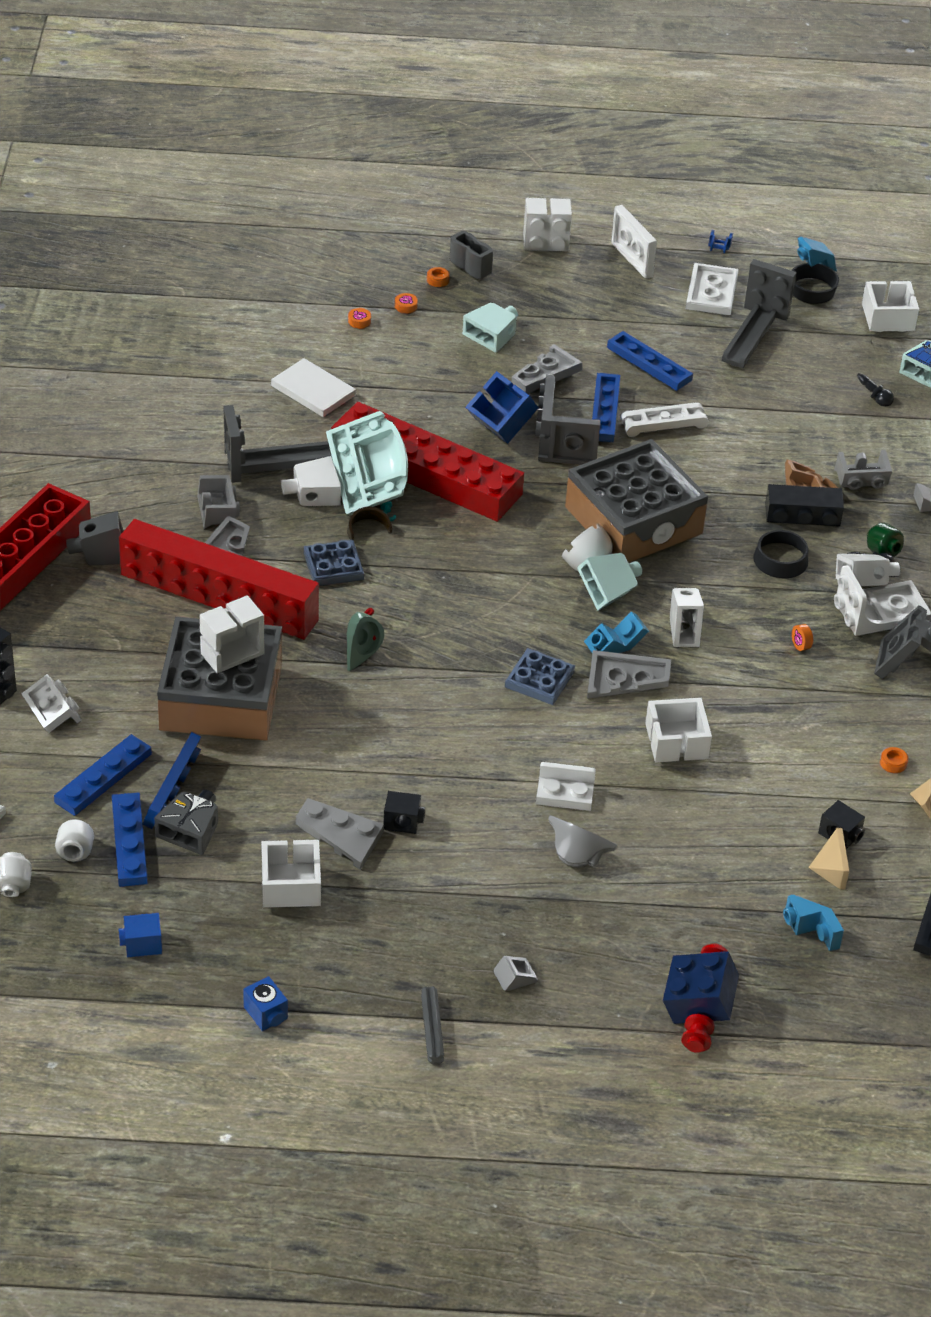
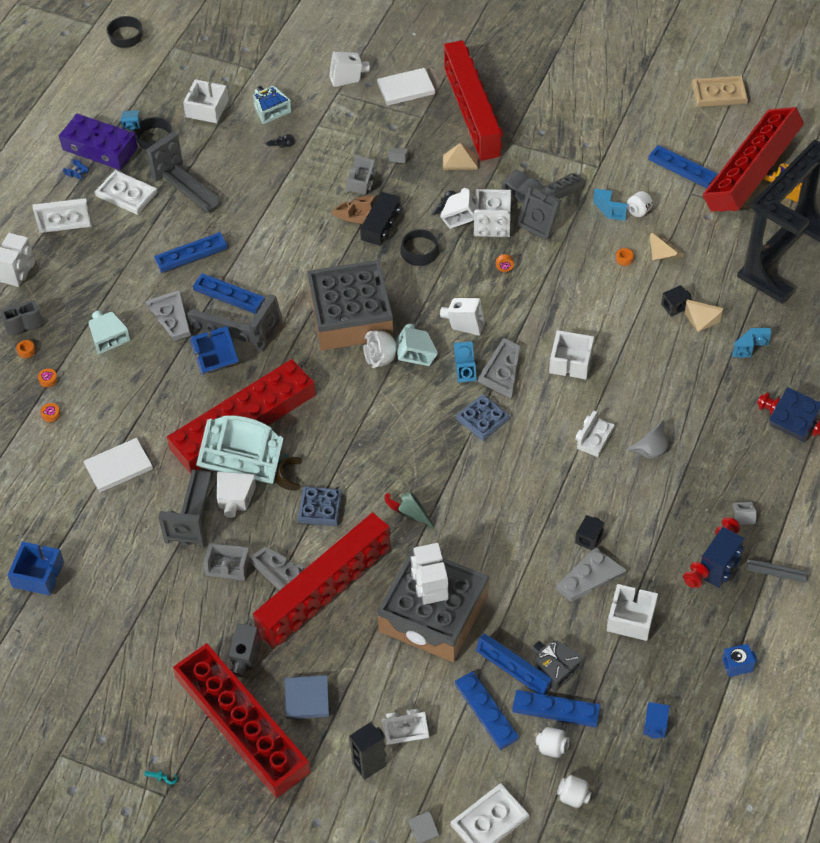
camera: 65 degrees left, 10 degrees up
(61, 612) = (306, 697): none -> sand blue tile
(141, 357) = (33, 572): none -> blue piece
(416, 943) = (719, 557): none -> dark blue brick
(664, 418) = (256, 265): white plate -> none
(769, 235) = (98, 141): none -> dark purple piece
(885, 539) = (433, 188): dark green head -> none

